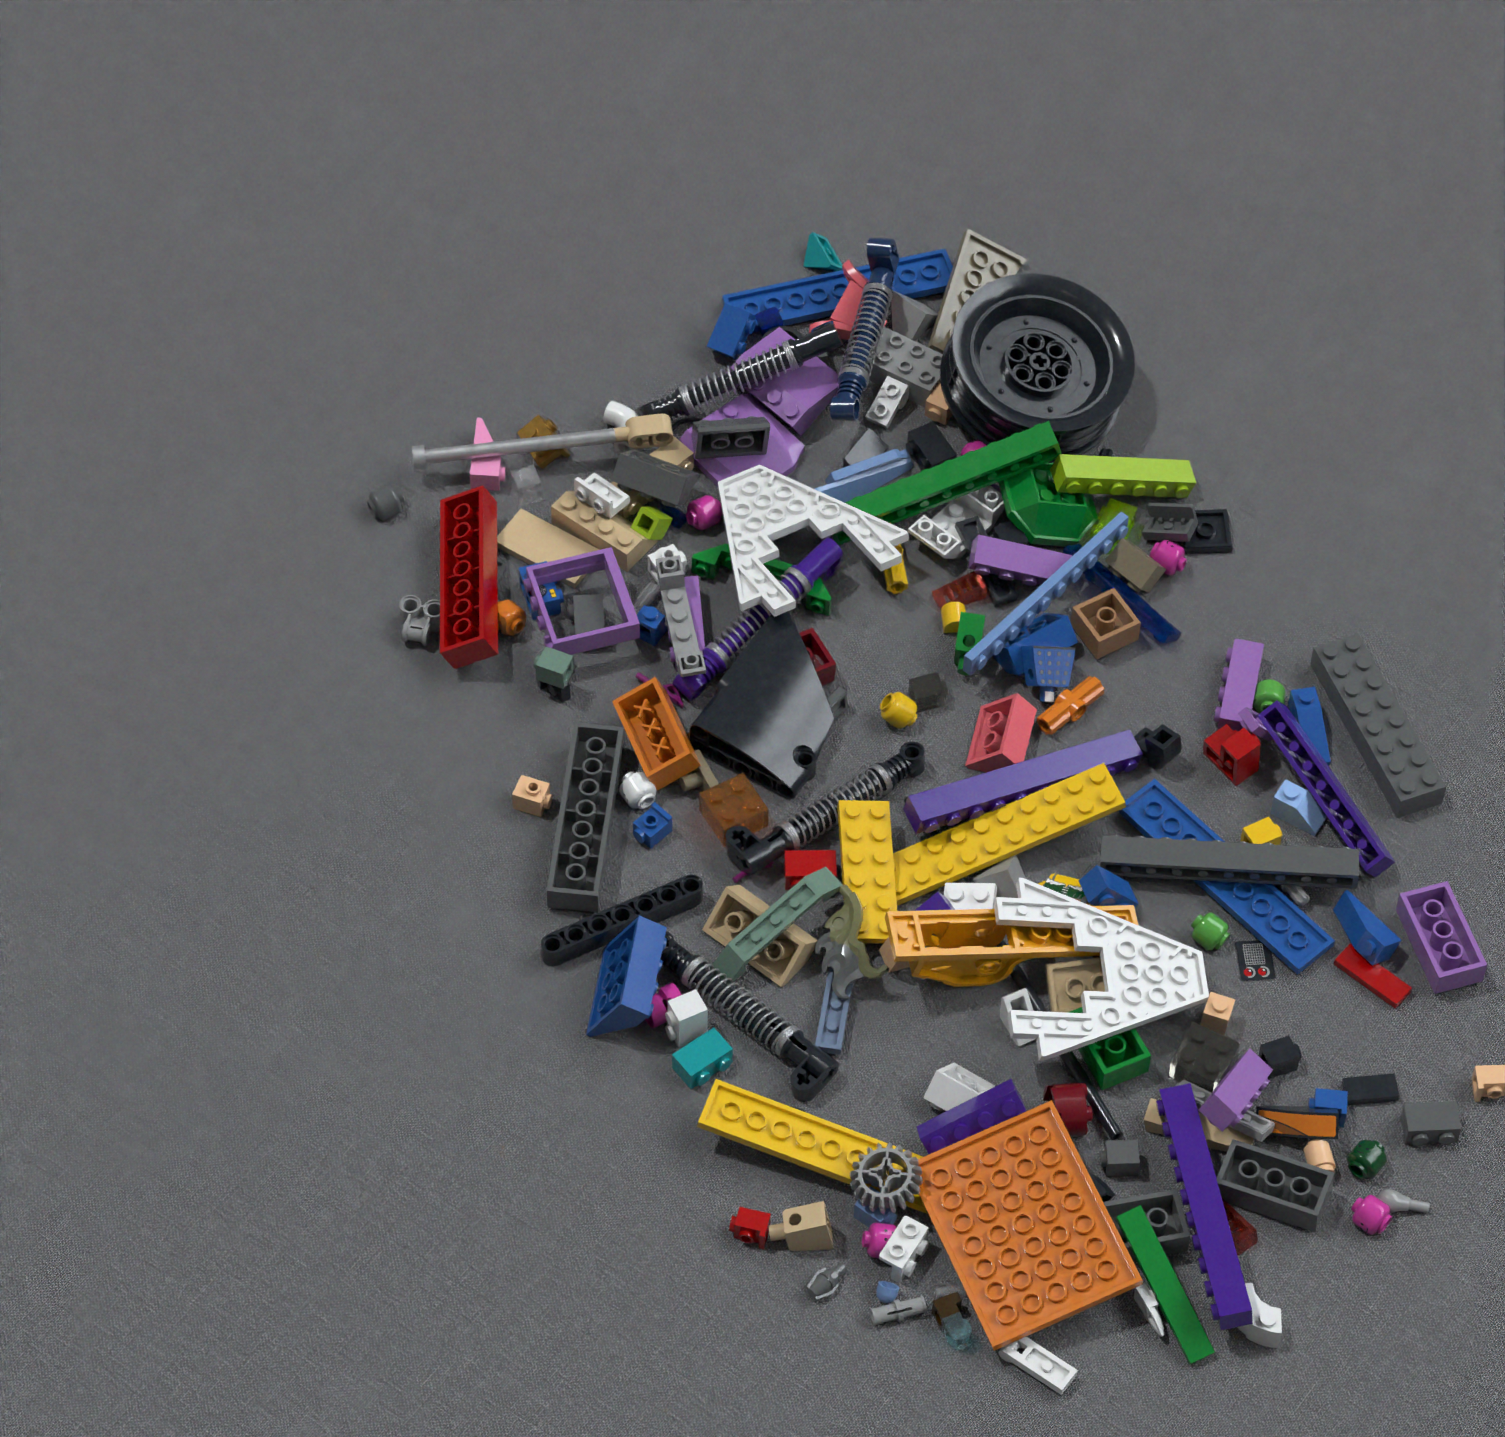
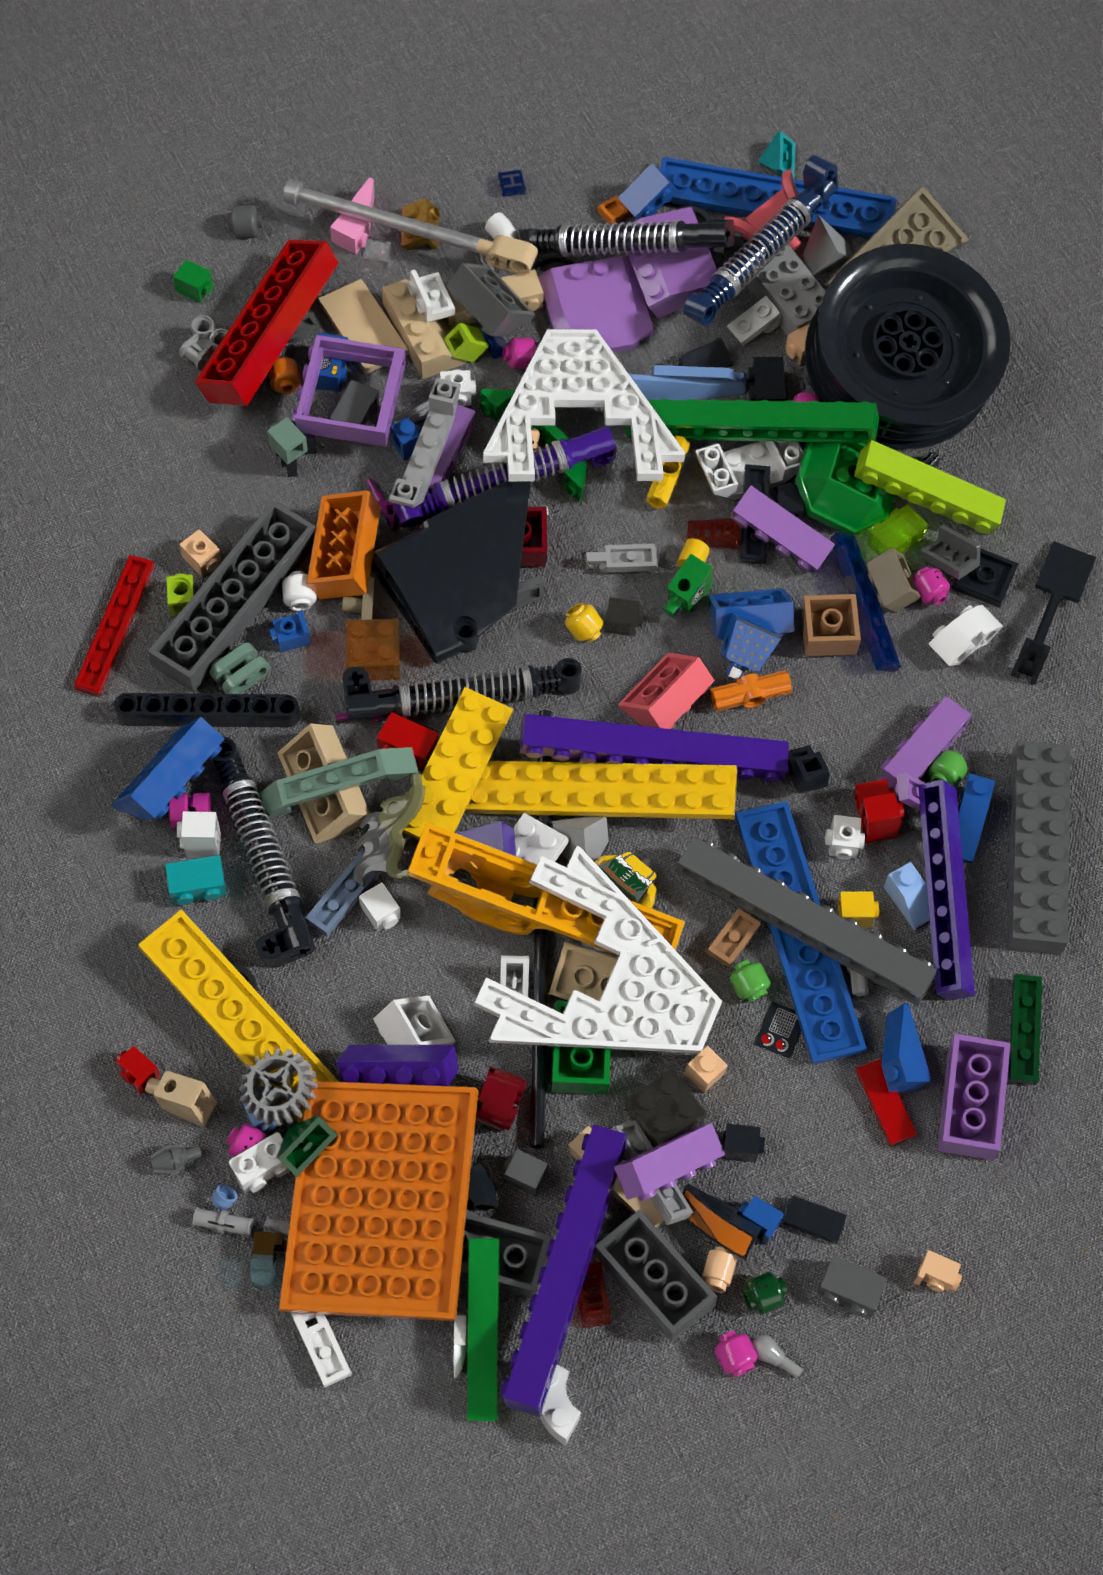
camera: 25 degrees right, 10 degrees up
(373, 572) = (193, 281): none -> green brick
(492, 889) = (114, 625): none -> red tile
(537, 846) = (177, 584): none -> lime brick
(600, 372) = (511, 183): none -> clear blue tile
(622, 865) = (239, 669): none -> sand green brick
(705, 360) = (613, 211): none -> orange tile
(730, 437) = (580, 291): dark grey slope -> none
(768, 319) = (689, 196): clear blue slope -> none
(872, 1010) = (380, 907): none -> white brick
(897, 645) = (623, 558): none -> light grey hinge
(935, 1210) = (304, 1143): none -> dark green slope
(1044, 594) = (780, 572): medium blue plate -> none
(1106, 888) = (669, 894): blue brick -> none
(1176, 905) = (733, 938): none -> medium nougat plate
(1219, 583) = (965, 634): none -> white brick
(1219, 785) = (844, 837): none -> white brick
(1271, 502) = (1063, 577): none -> black piece
(1448, 867) = (1025, 1029): none -> dark green plate

